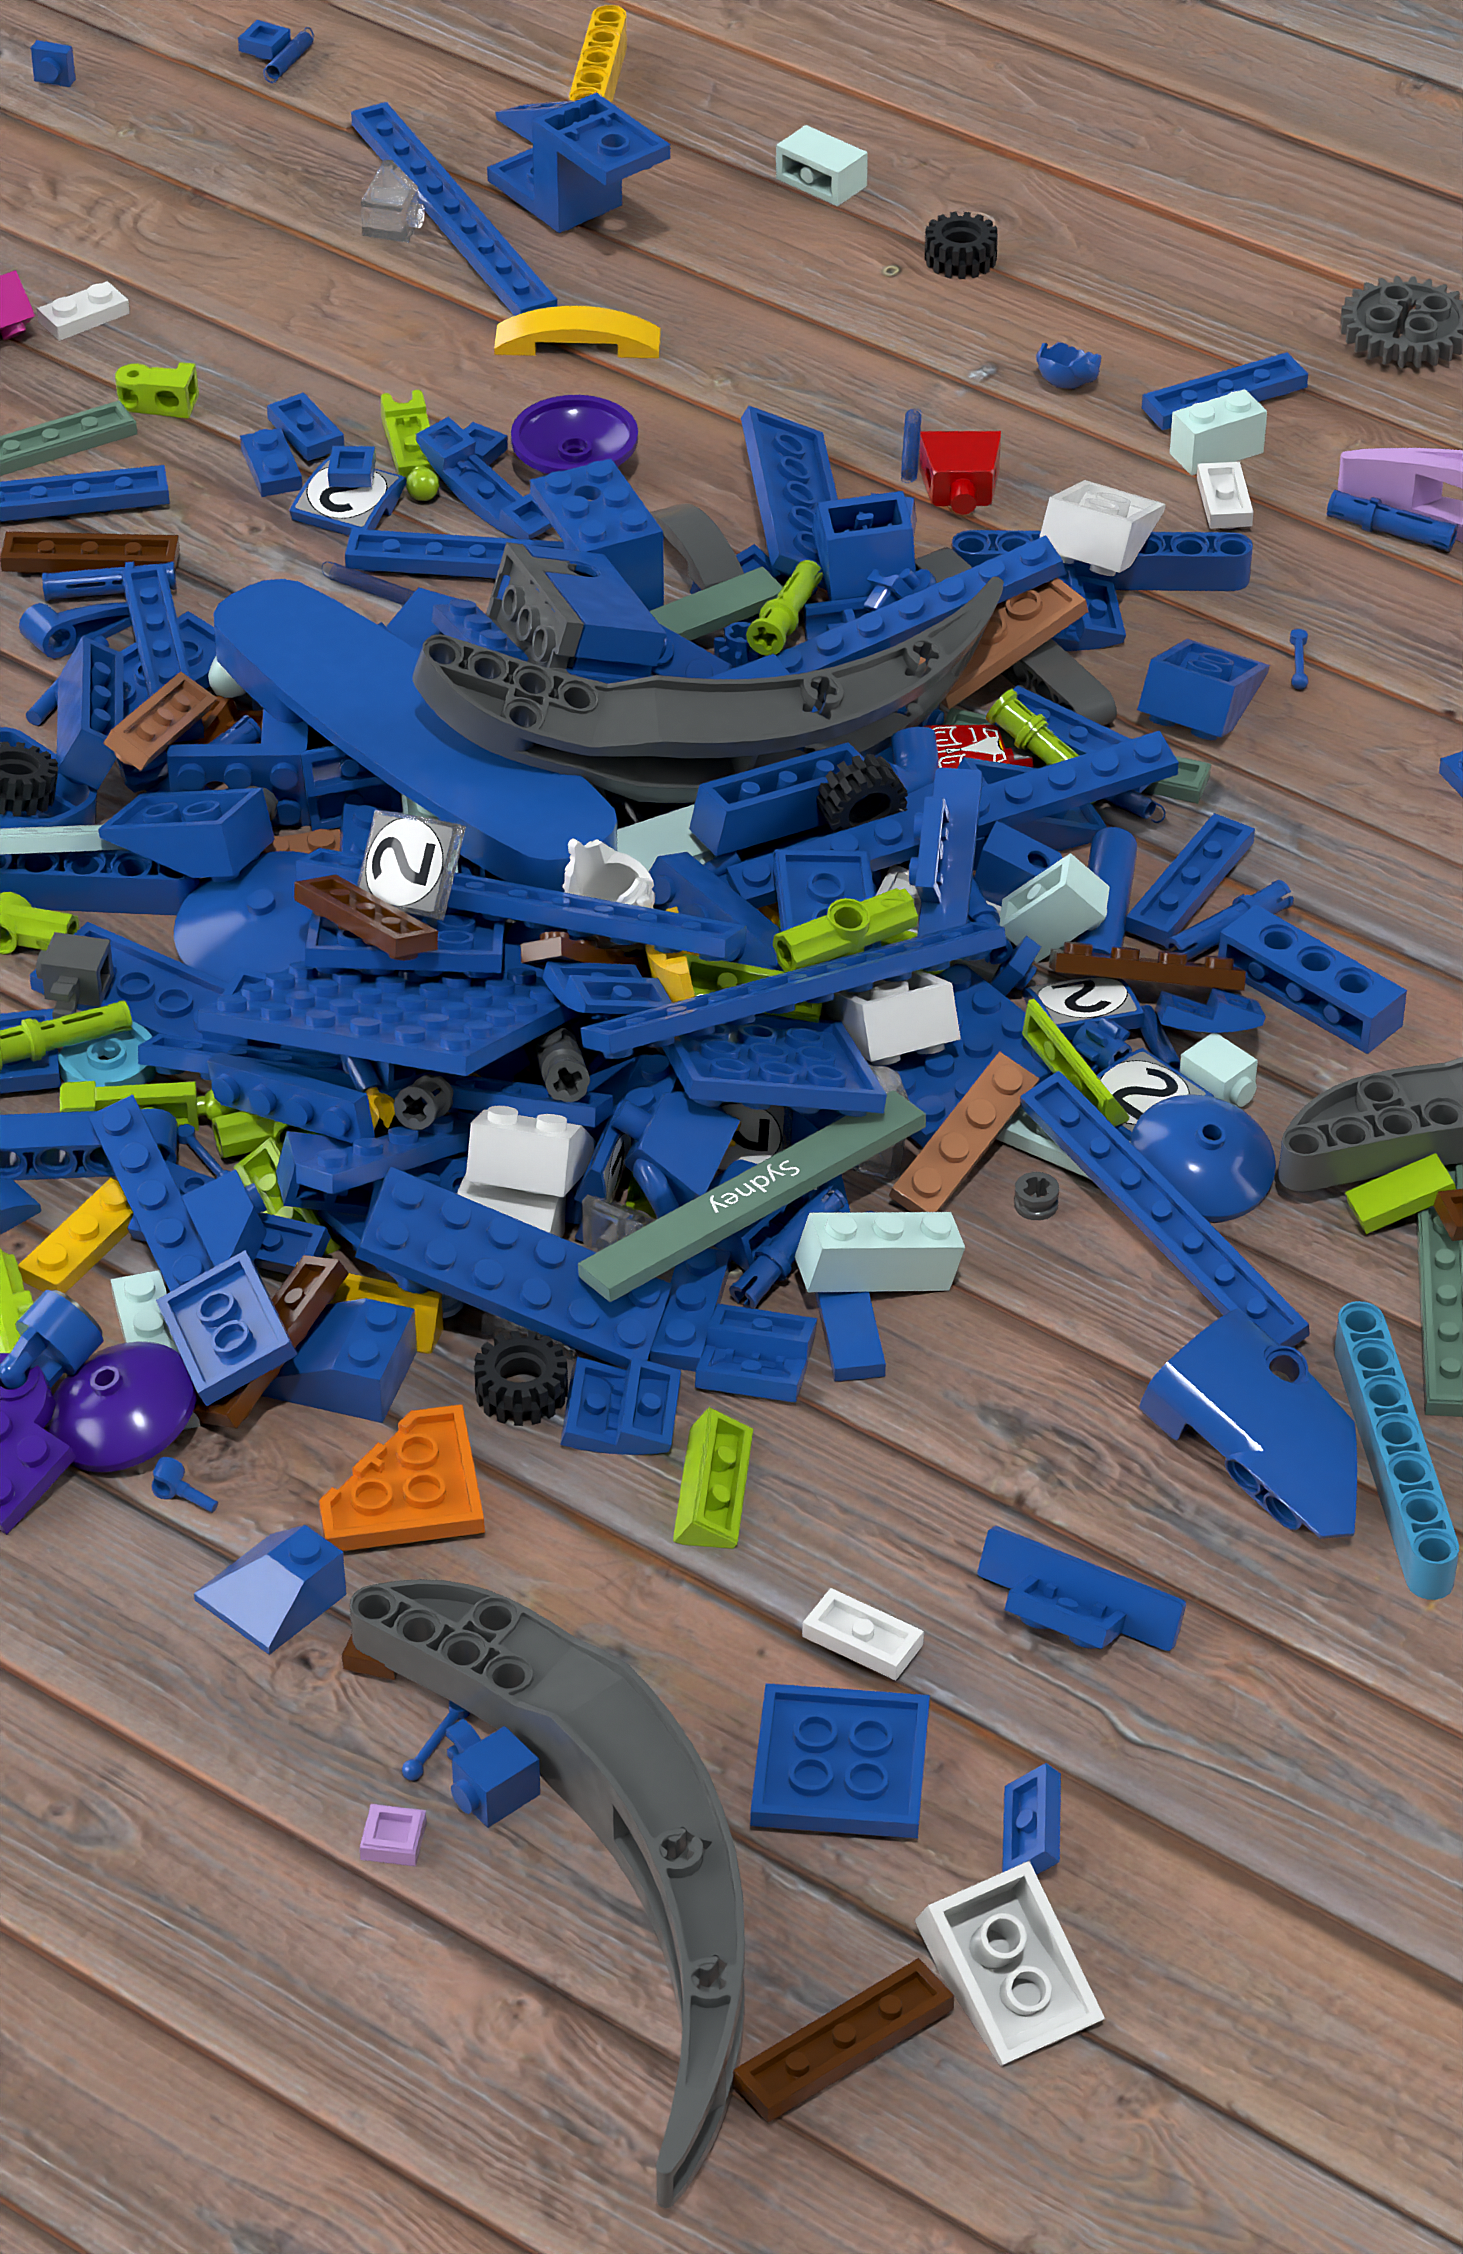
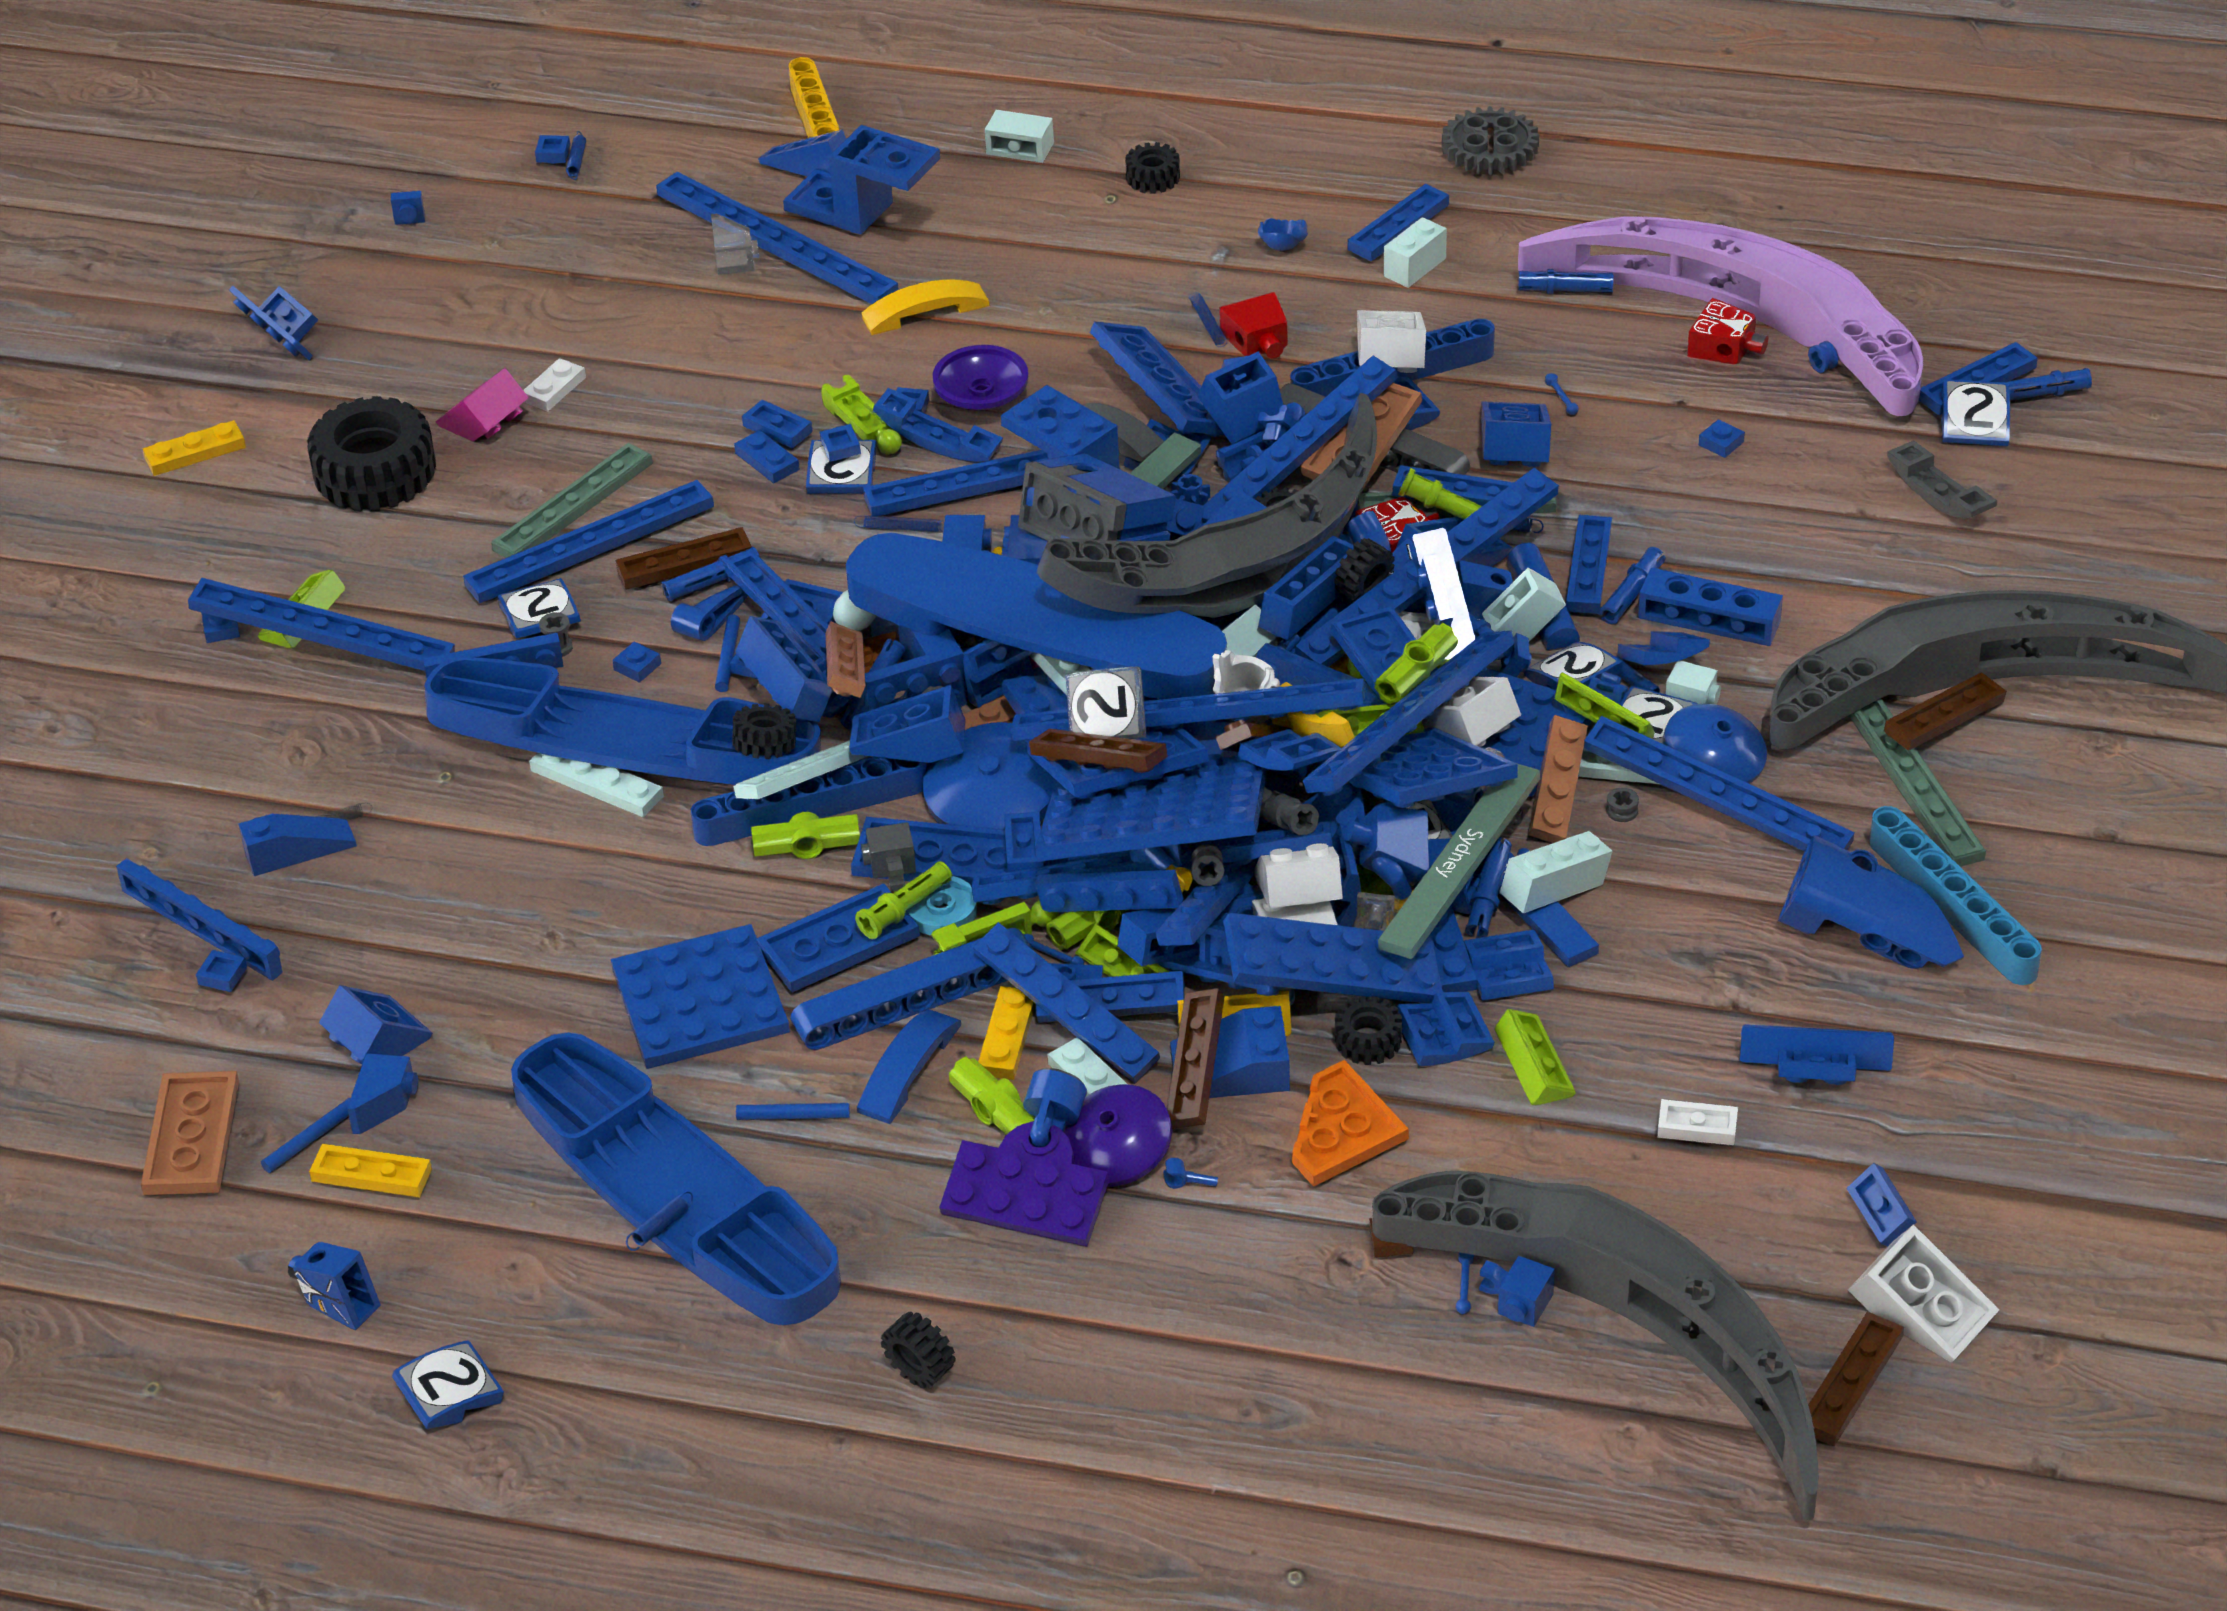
camera: 20 degrees left, 0 degrees up
(158, 389) = (651, 427): lime leg -> none
(226, 1328) = (1166, 1057): plate -> none
(227, 1217) = (1117, 988): blue slope -> none
(277, 1587) = (1296, 1217): blue slope -> none
(393, 1835) = (1479, 1351): lavender tile -> none
(468, 623) = (1019, 533): blue plate -> none
(780, 615) = (1212, 462): lime pin -> none
(840, 1760) = (1736, 1205): blue plate -> none
(1168, 968) = (1617, 627): reddish brown plate -> none
(1224, 495) = (1444, 295): white plate -> none
(1399, 1193) = (1855, 730): lime tile -> none

